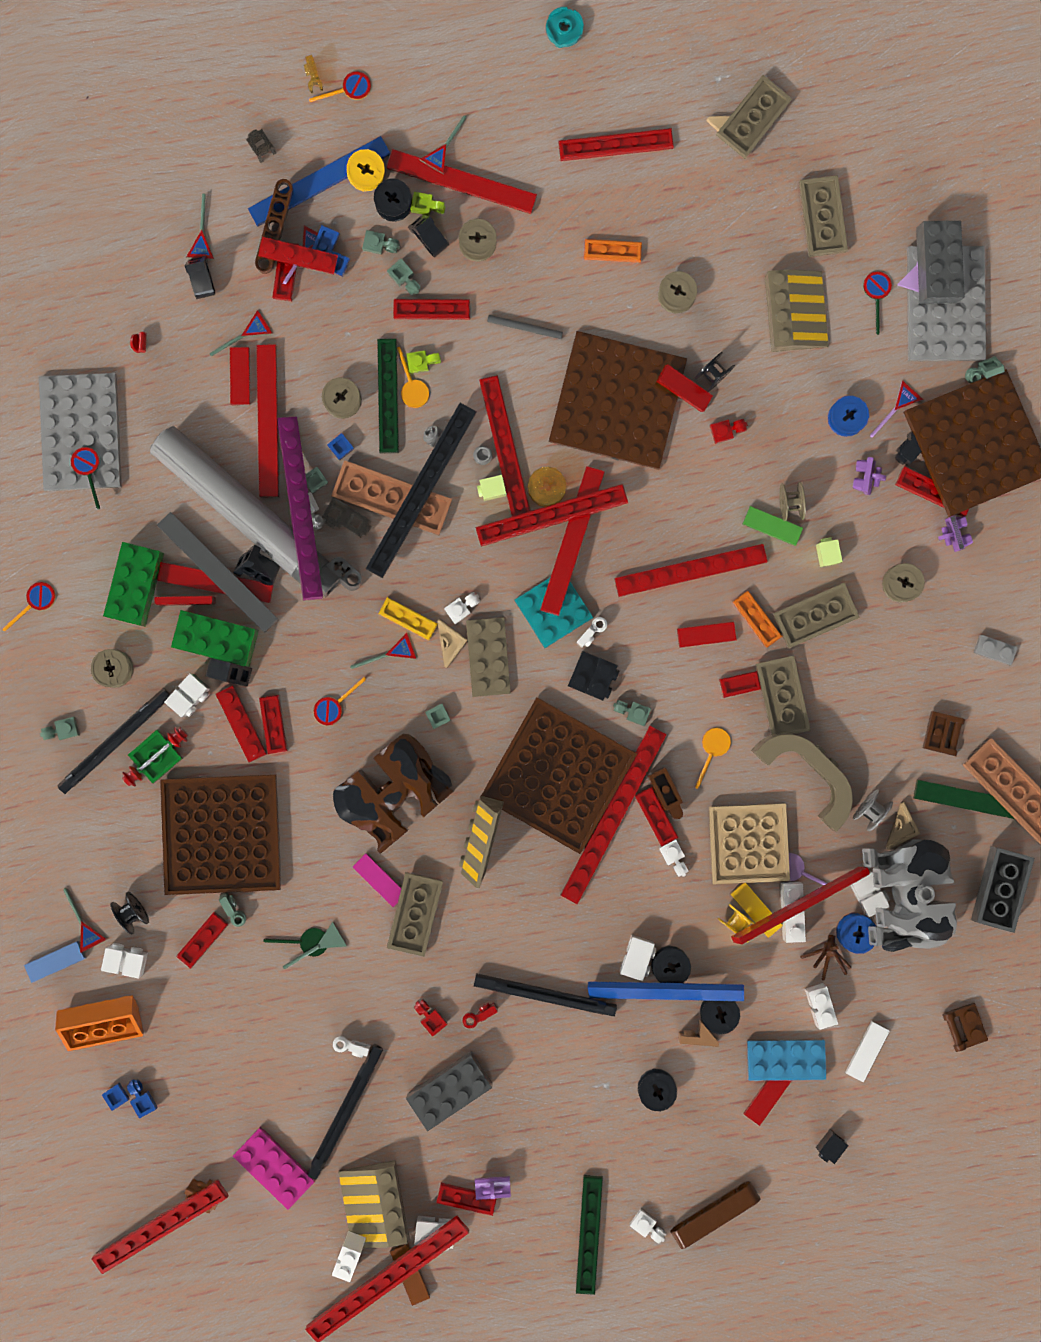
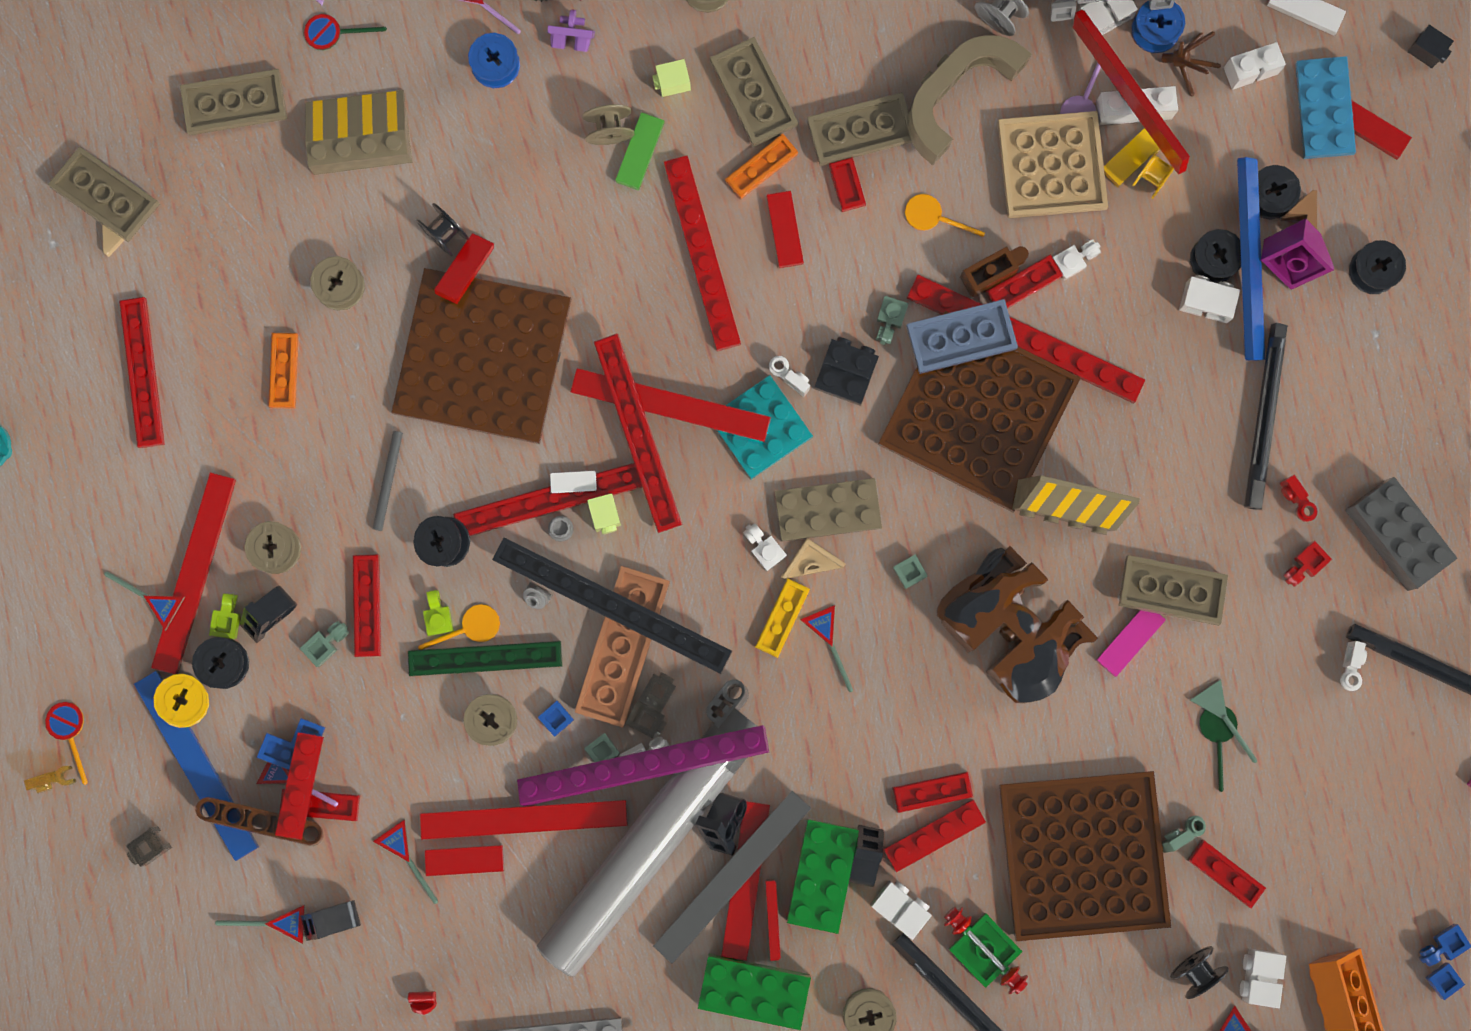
camera: 95 degrees left, 5 degrees down
(328, 710) = (909, 718): piece -> none
(375, 242) = (277, 685): sand green plate -> none
(476, 355) = (430, 534): none -> black piece
(517, 465) = (573, 481): none -> white sticker
(550, 476) = (586, 438): clear yellow piece -> none
(615, 764) = (961, 336): none -> sand blue plate
(668, 1026) = (1297, 254): none -> magenta slope
(723, 431) = (517, 218): red plate -> none

